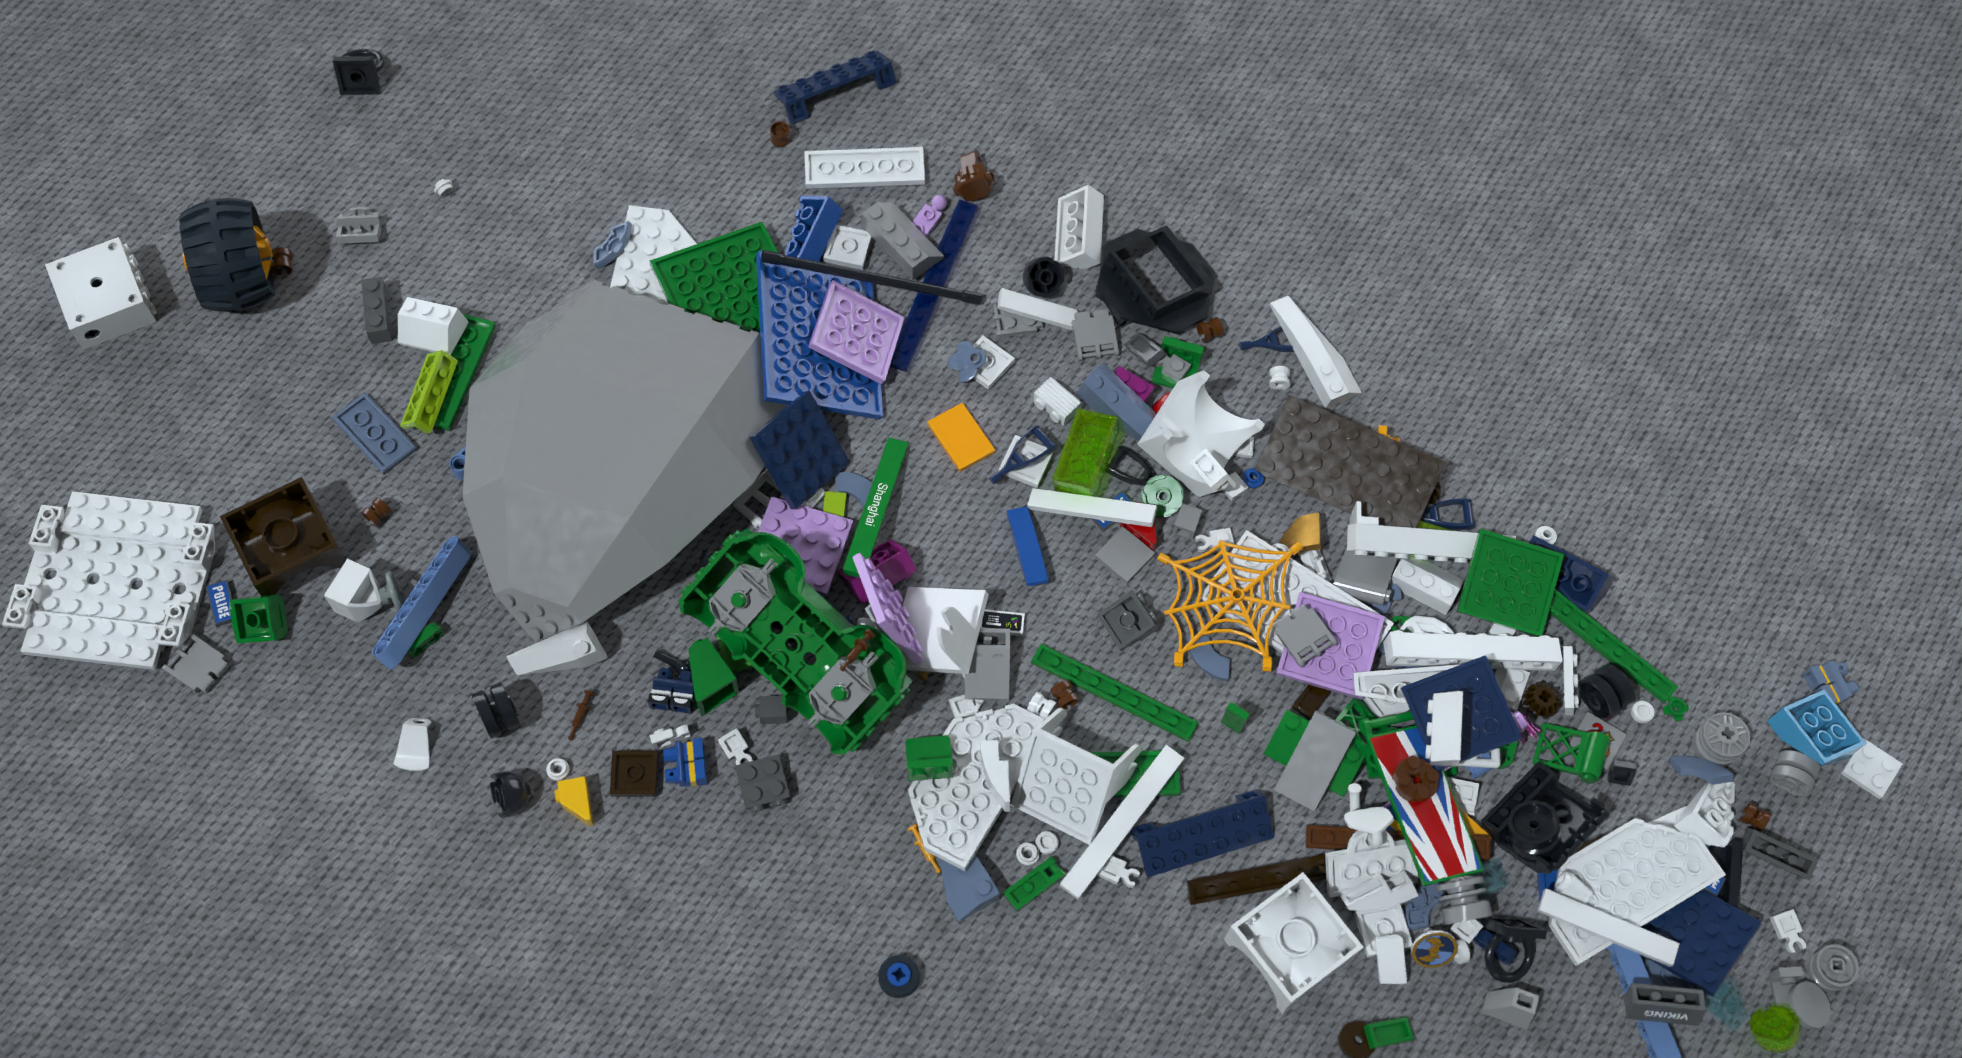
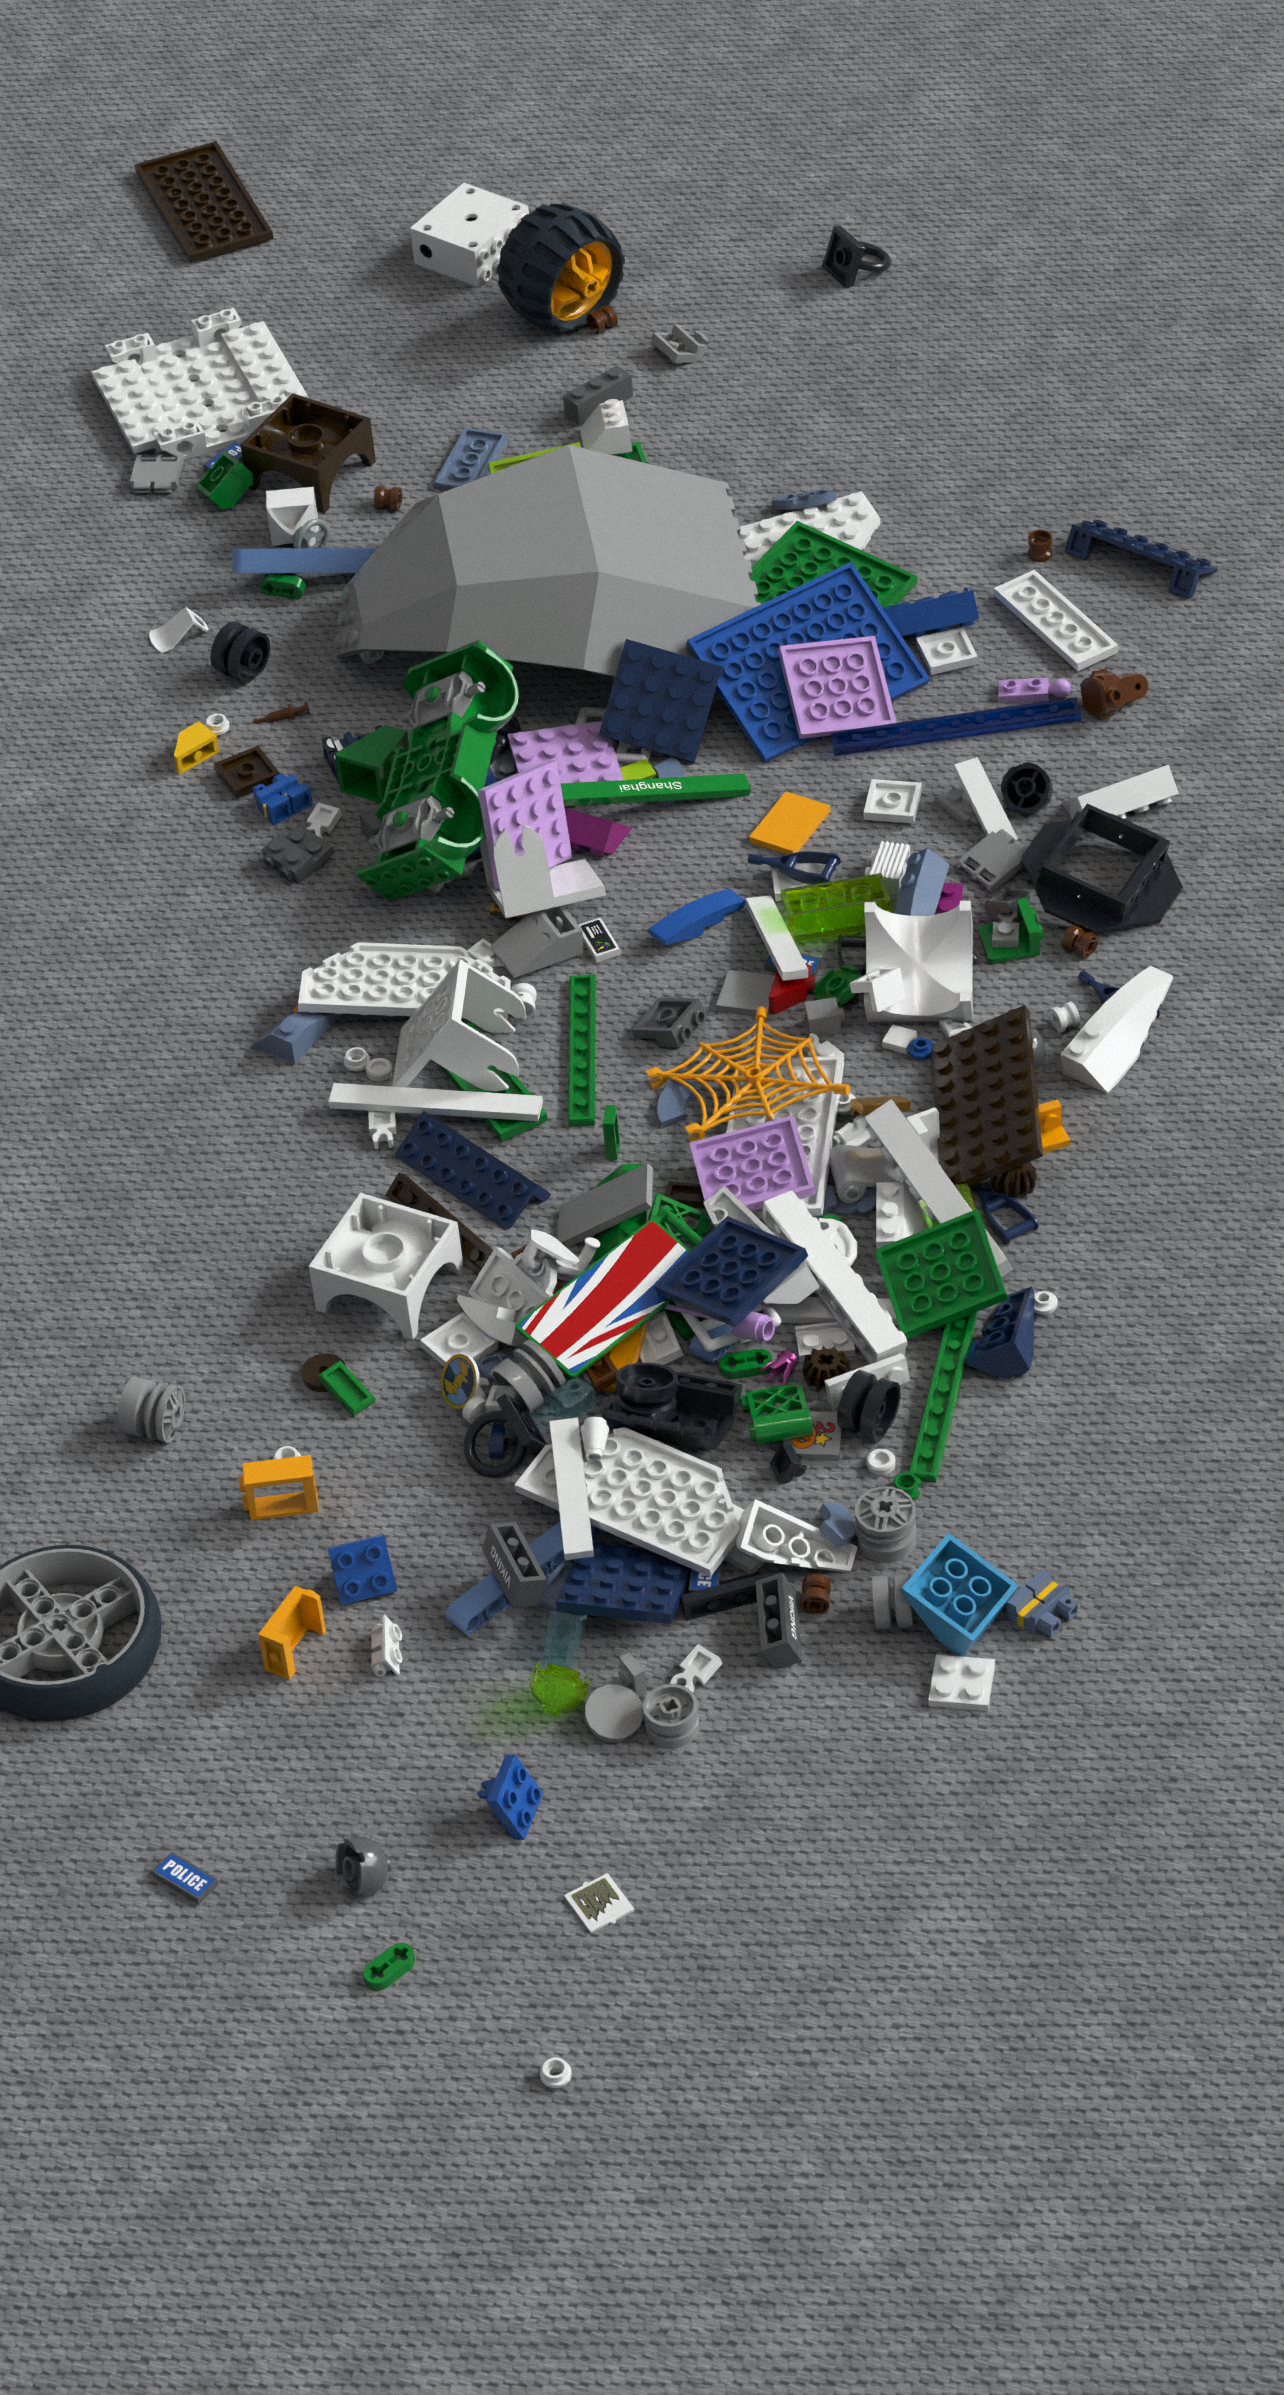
camera: 70 degrees right, 20 degrees down
(443, 187) = (772, 371): white plate -> none
(509, 792) = (167, 701): black cylinder -> none
(566, 650) = (332, 668): white wedge -> none
(666, 737) = (295, 767): white plate -> none
(780, 259) = (853, 578): black piece -> none
(860, 645) = (446, 798): reddish brown piece -> none
(897, 985) = (166, 1025): black wheel -> none
(900, 238) = (982, 671): light grey slope -> none
(929, 758) = (396, 939): green bracket -> none
(963, 361) = (877, 781): sand blue plate -> none
(996, 772) = (413, 984): white slope -> none
(1034, 884) = (324, 1074): green plate -> none
(1064, 694) = (550, 1009): reddish brown wheel -> none
(1303, 634) = (741, 1133): light grey plate -> none
(1391, 959) = (427, 1356): white slope -> none
(1423, 771) = (630, 1259): reddish brown plate -> none
(1445, 729) = (695, 1256): white slope -> none
(1511, 1006) = (439, 1470): light grey slope -> none

